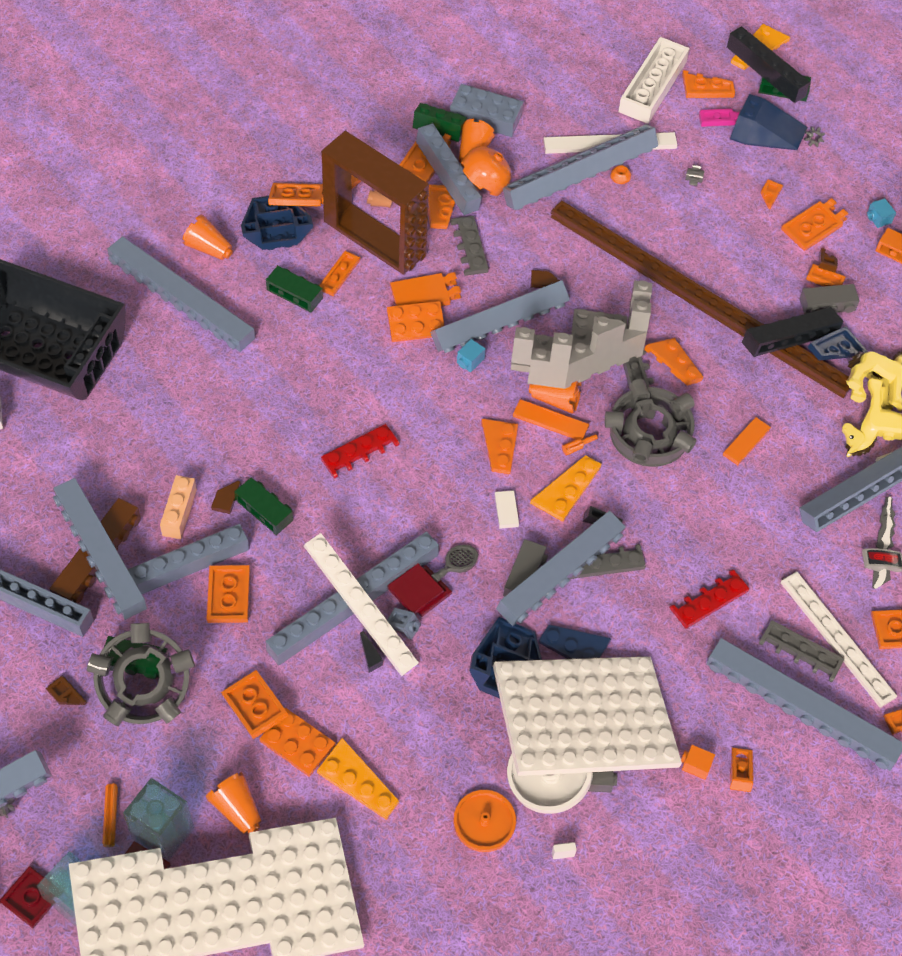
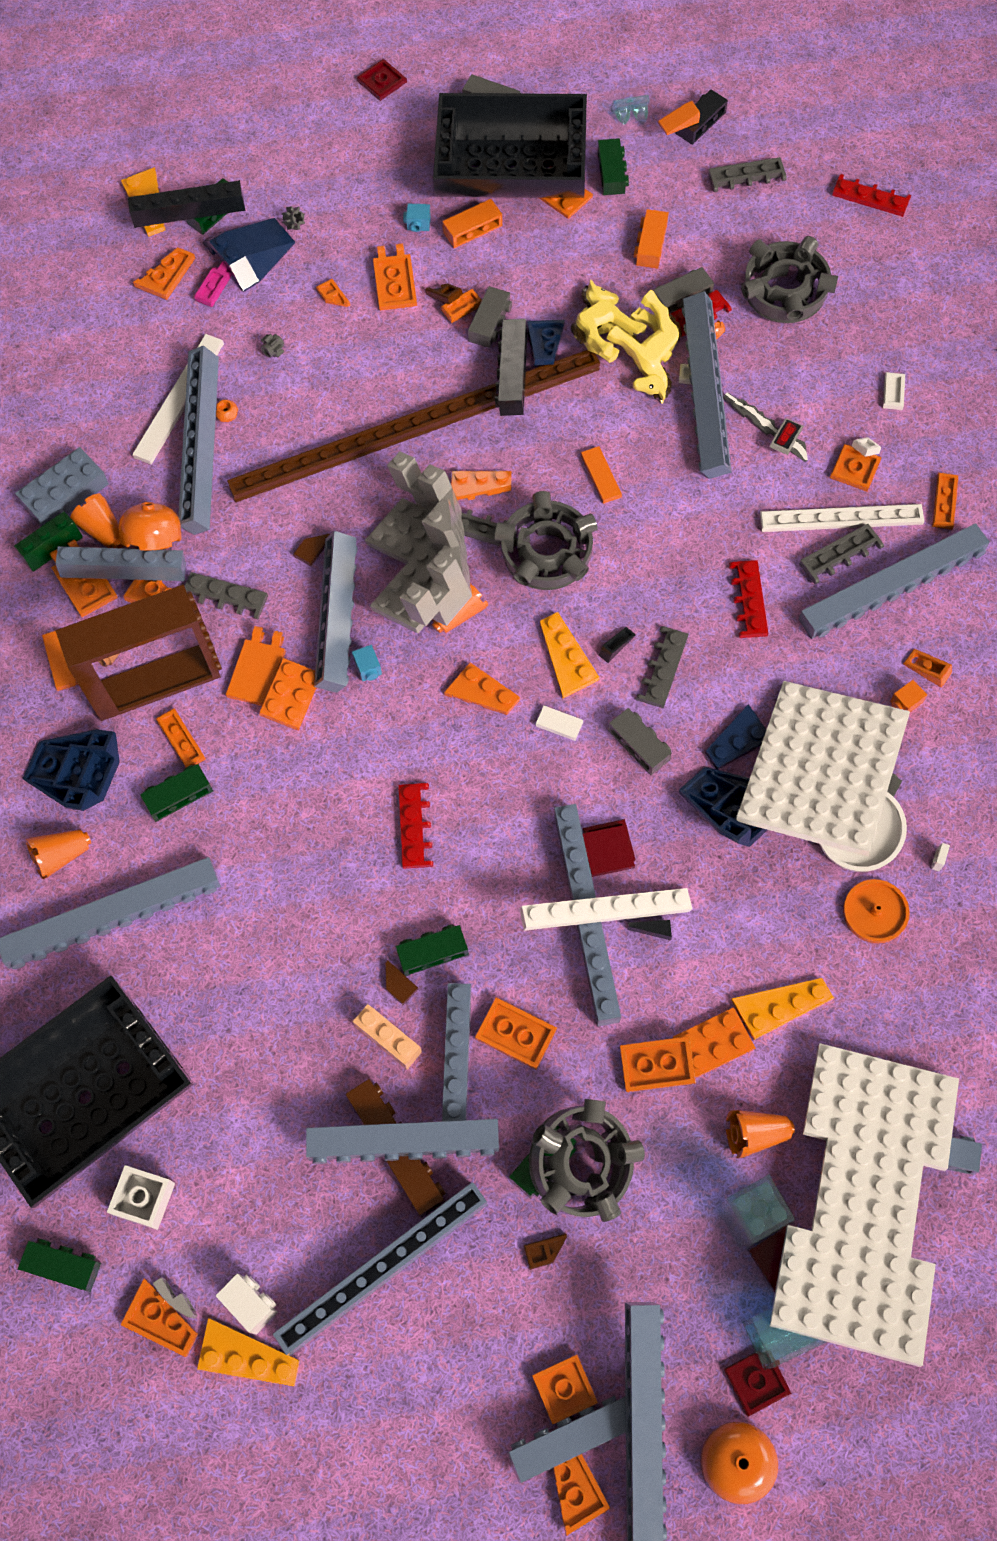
camera: 55 degrees left, 10 degrees up
(110, 812) = (706, 1263): orange axle -> none
(296, 194) = (55, 726): orange tile -> none
(404, 622) = (636, 880): sand blue bracket -> none
(451, 568) = (604, 823): dark grey piece -> none
(550, 420) = (480, 630): orange tile -> none
(560, 568) = (662, 707): sand blue brick -> none
(577, 444) = (523, 622): orange axle -> none
(653, 80) = (130, 314): white brick -> none

